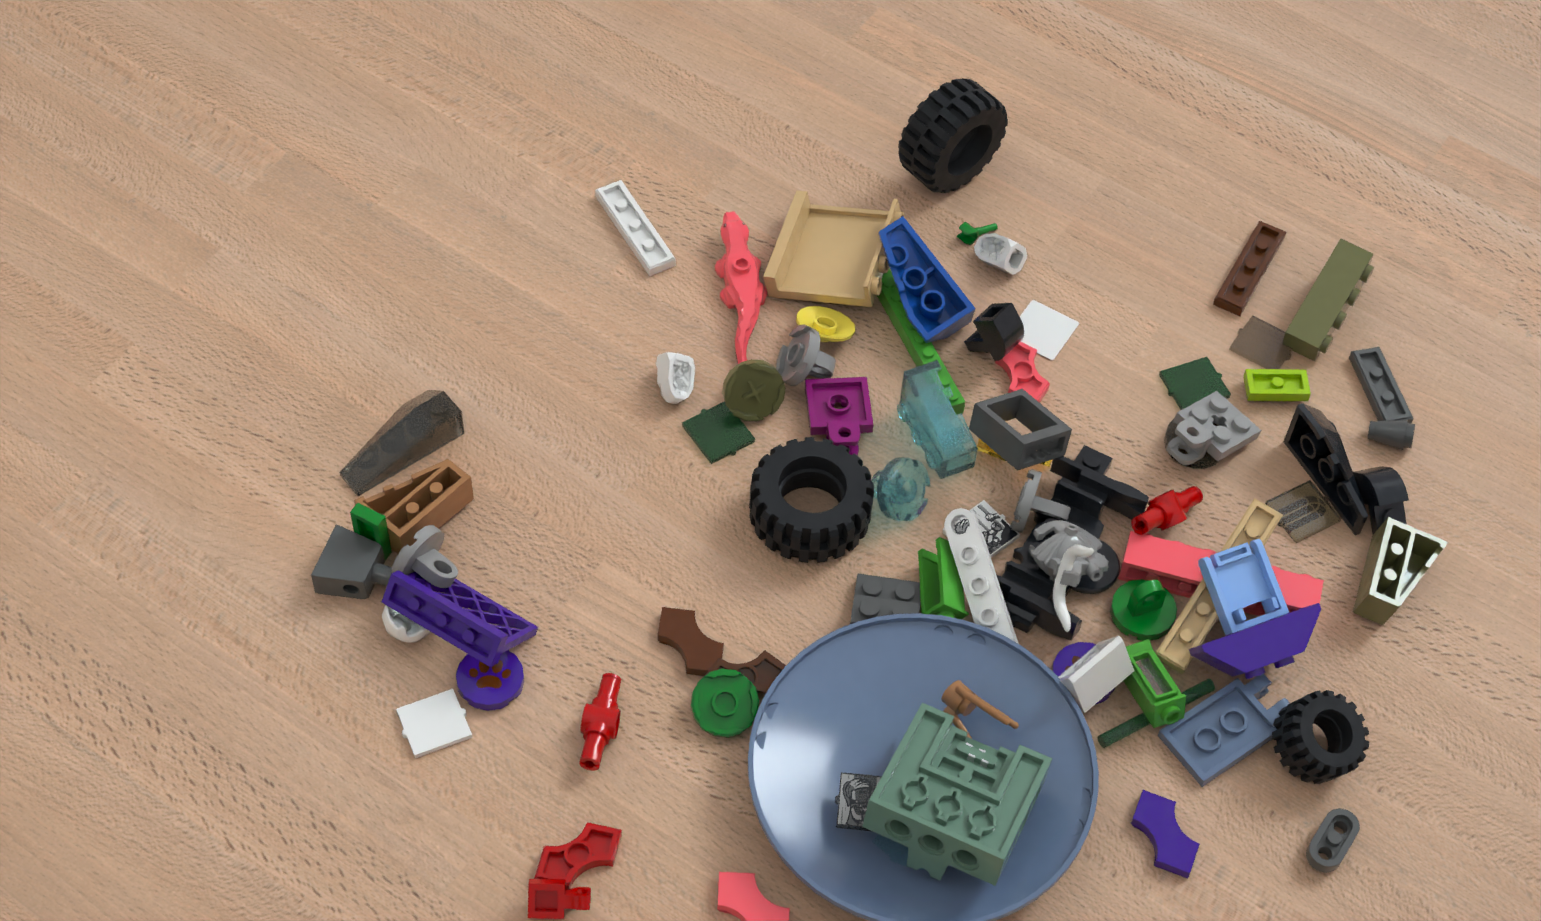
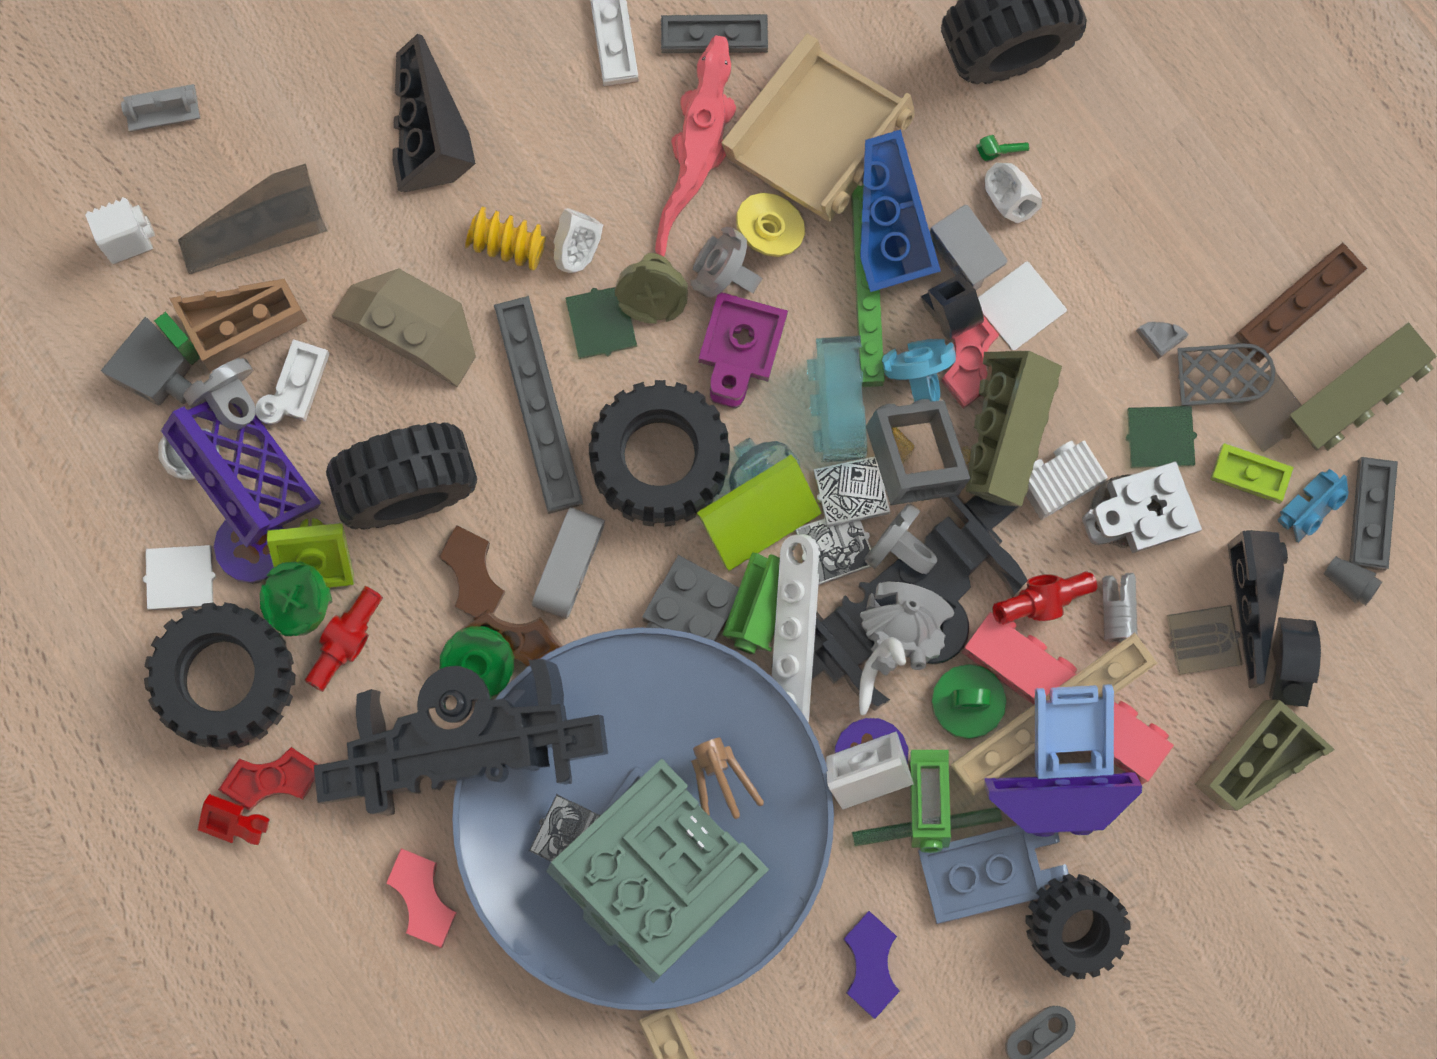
camera: 20 degrees right, 25 degrees up
(291, 468) = (120, 230): none -> white brick
(292, 383) = (161, 107): none -> light grey hinge
(482, 545) = (295, 385): none -> white hinge
(498, 738) = (180, 646): none -> black tyre
(522, 335) = (431, 131): none -> black wedge
(548, 692) = (294, 598): none -> green tile
(549, 661) = (317, 546): none -> lime tile
(562, 474) = (411, 322): none -> dark tan wedge
(607, 564) = (401, 475): none -> black tyre
(617, 389) = (506, 238): none -> yellow piece
(693, 504) = (538, 405): none -> dark grey tile
(708, 220) = (694, 32): none -> dark grey tile
(769, 606) = (568, 563): none -> light grey beam
(770, 735) = (492, 737): none -> black piece
(910, 518) = (759, 512): none -> lime tile
(976, 488) = (851, 491): none -> white piece
(985, 290) = (967, 246): none -> light grey panel
(988, 379) = (921, 366): none -> medium azure tile
(1080, 392) = (1011, 424): none -> olive wedge
(1136, 429) = (1064, 478): none -> white brick
(1159, 319) = (1161, 336): none -> flat silver tile
(1181, 323) = (1234, 373): none -> dark grey window
(1229, 506) = (1119, 616): none -> light grey hinge
(1338, 384) = (1326, 493): none -> dark azure hinge

